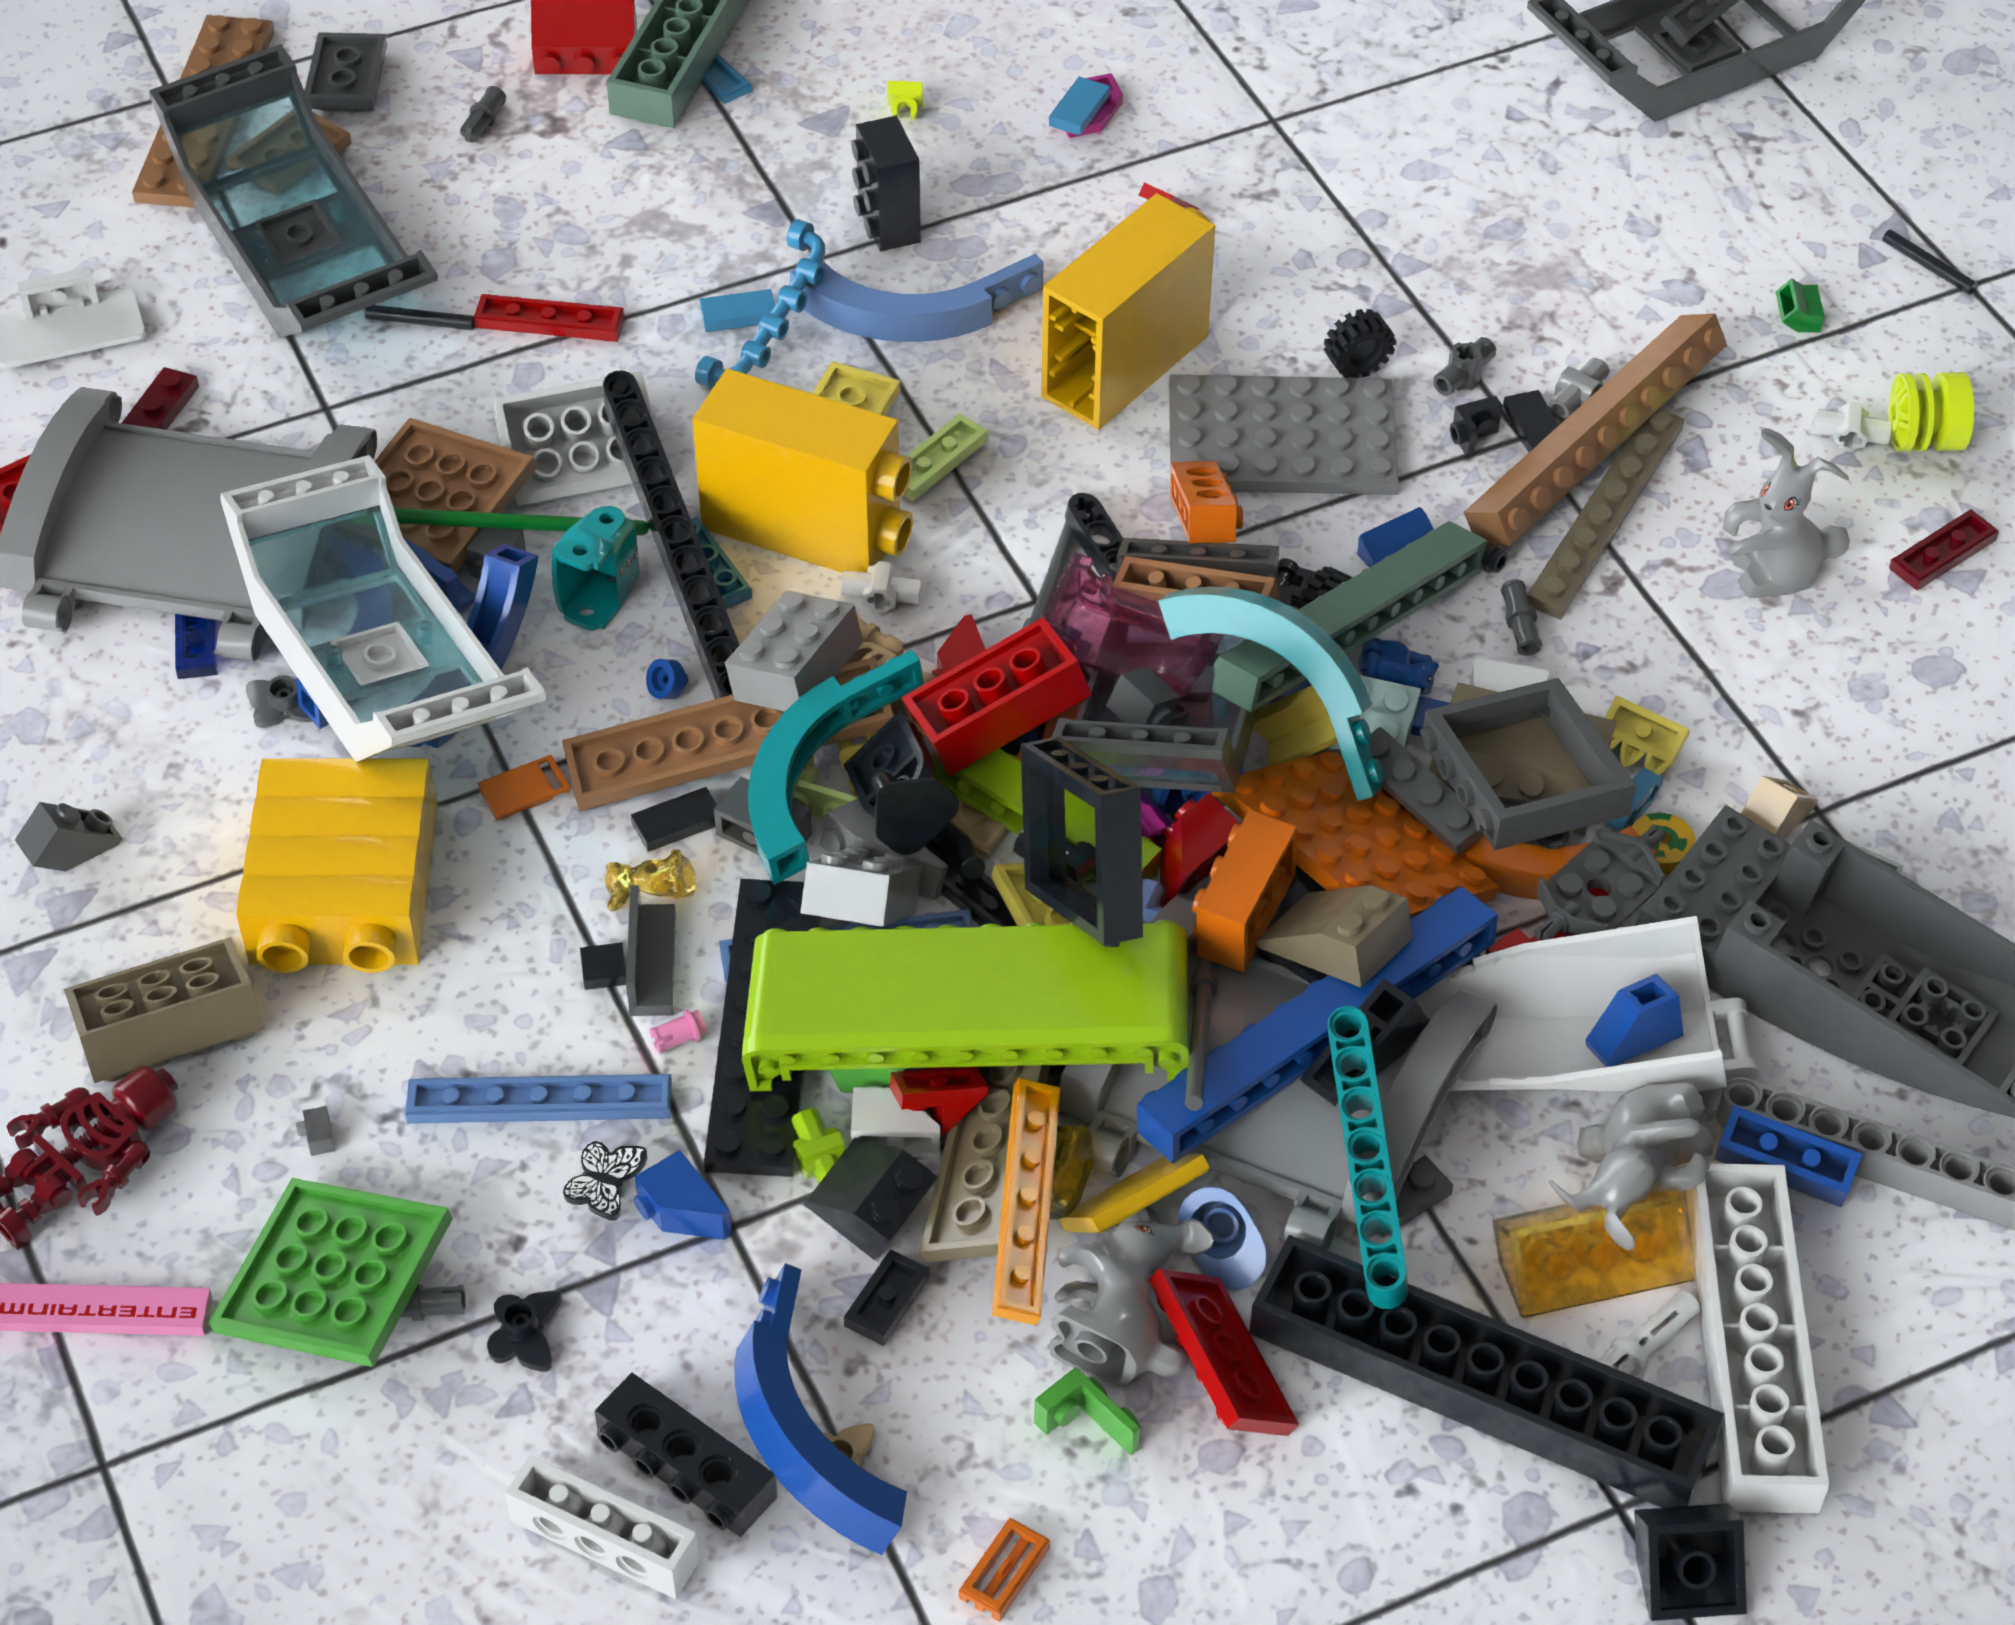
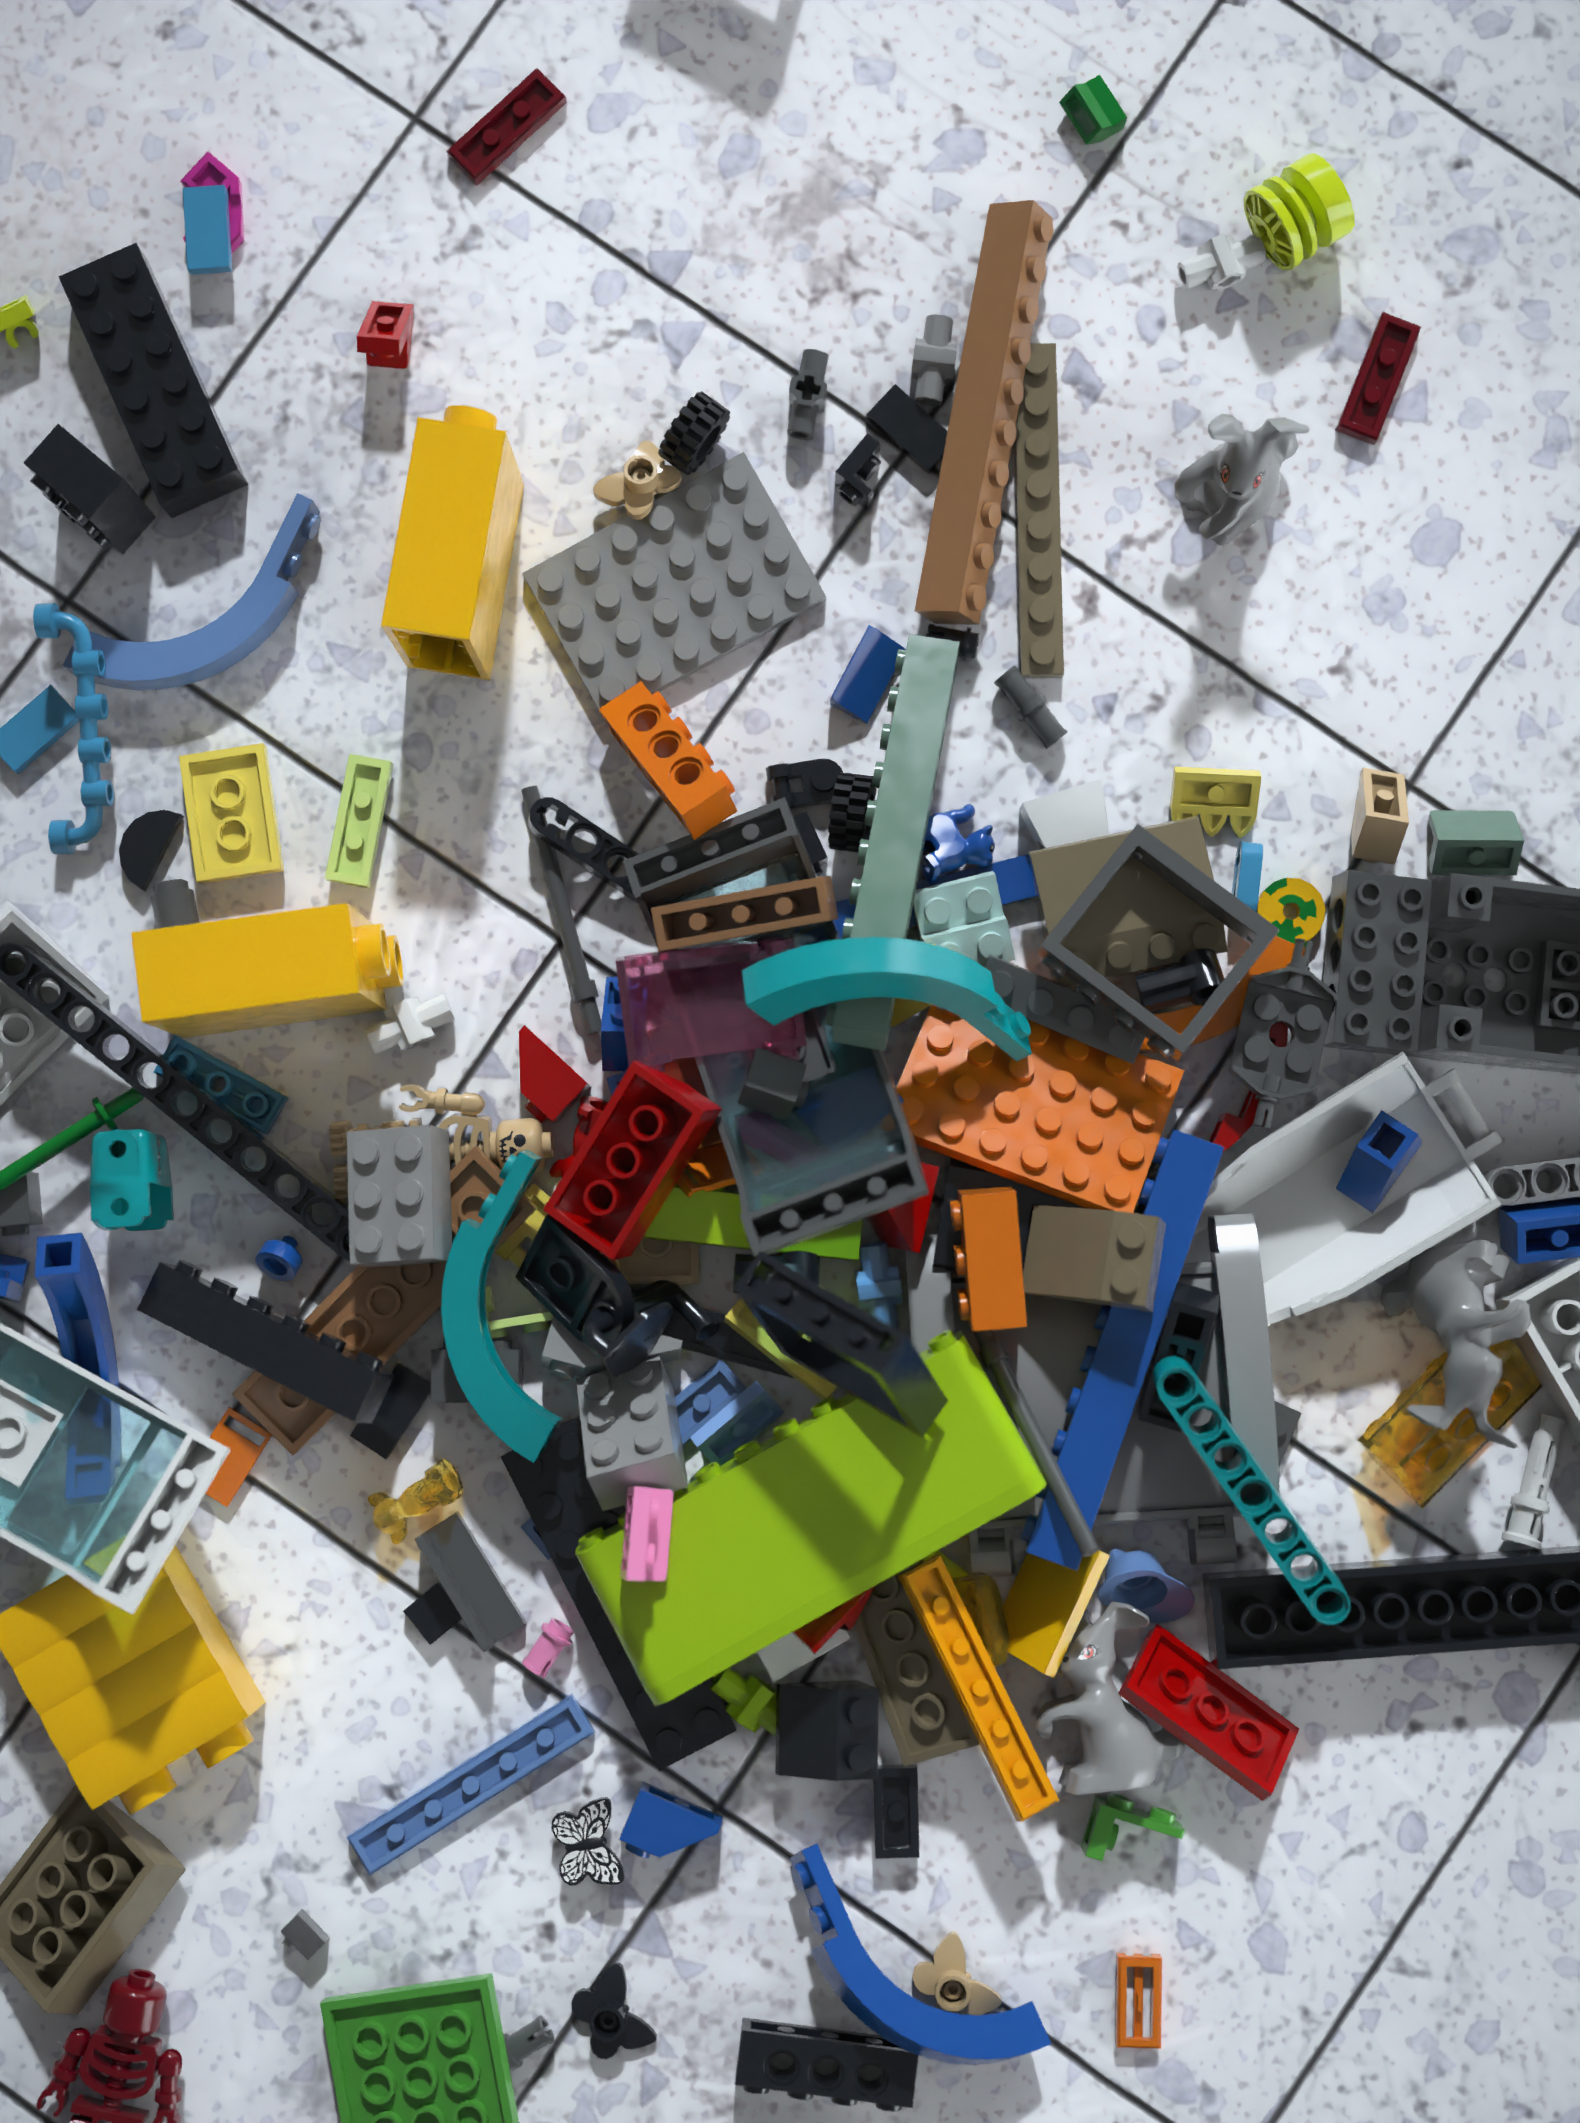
camera: 30 degrees left, 35 degrees up
(619, 706) = (267, 1342): none -> black brick
(825, 919) = (646, 1534): none -> bright pink bracket
(977, 165) = (153, 380): none -> black brick
(1300, 355) = (641, 480): none -> tan animal
(1338, 146) = (506, 126): none -> dark red tile

